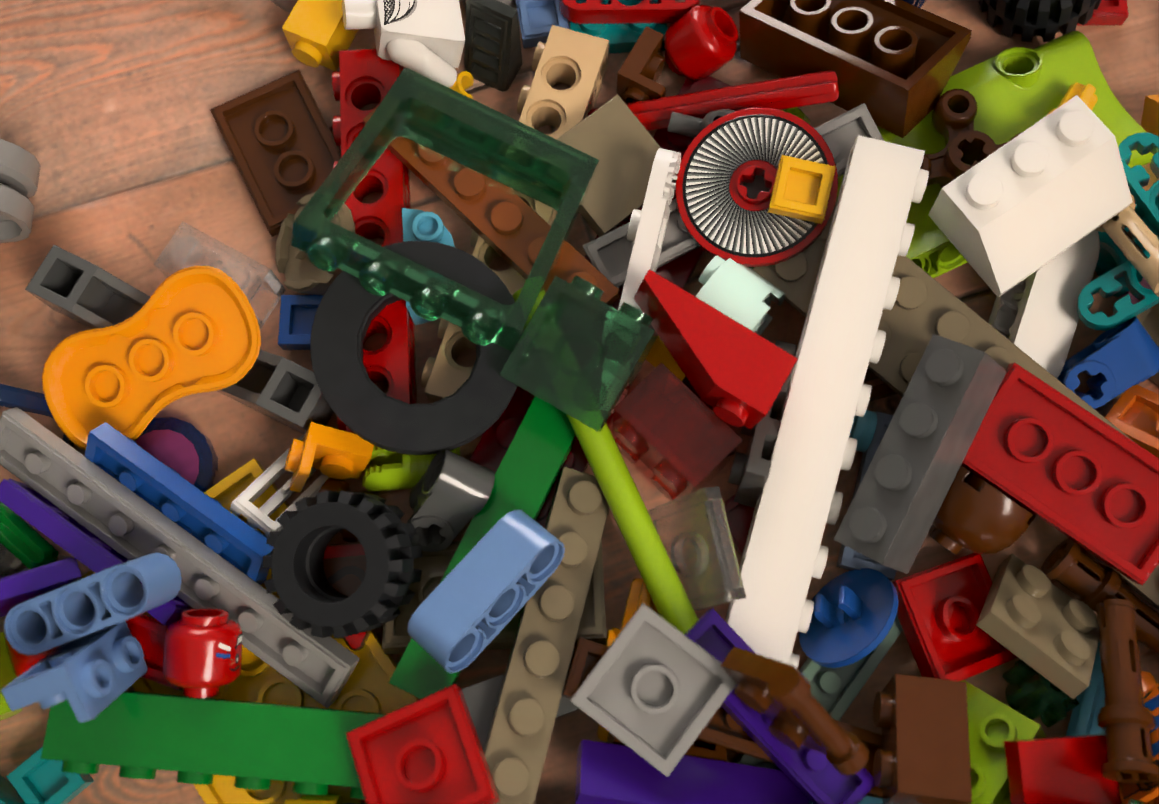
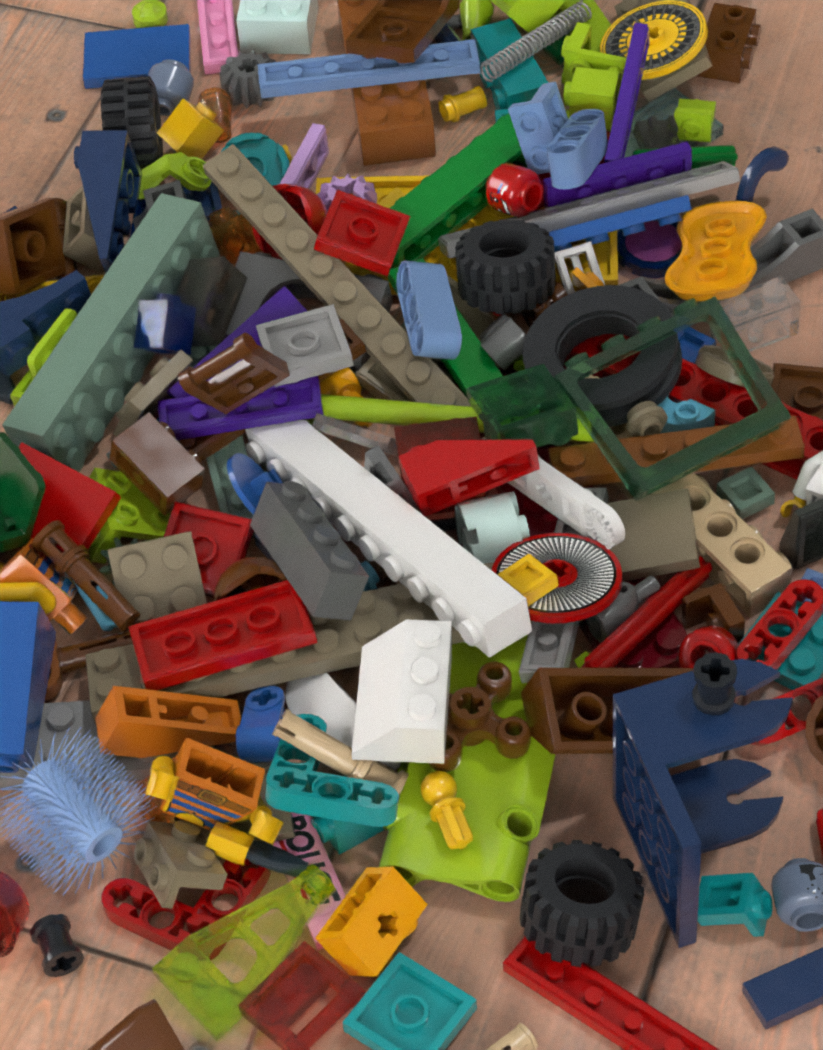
camera: 130 degrees right, 25 degrees down
(479, 245) = (646, 419): none -> dark tan plate

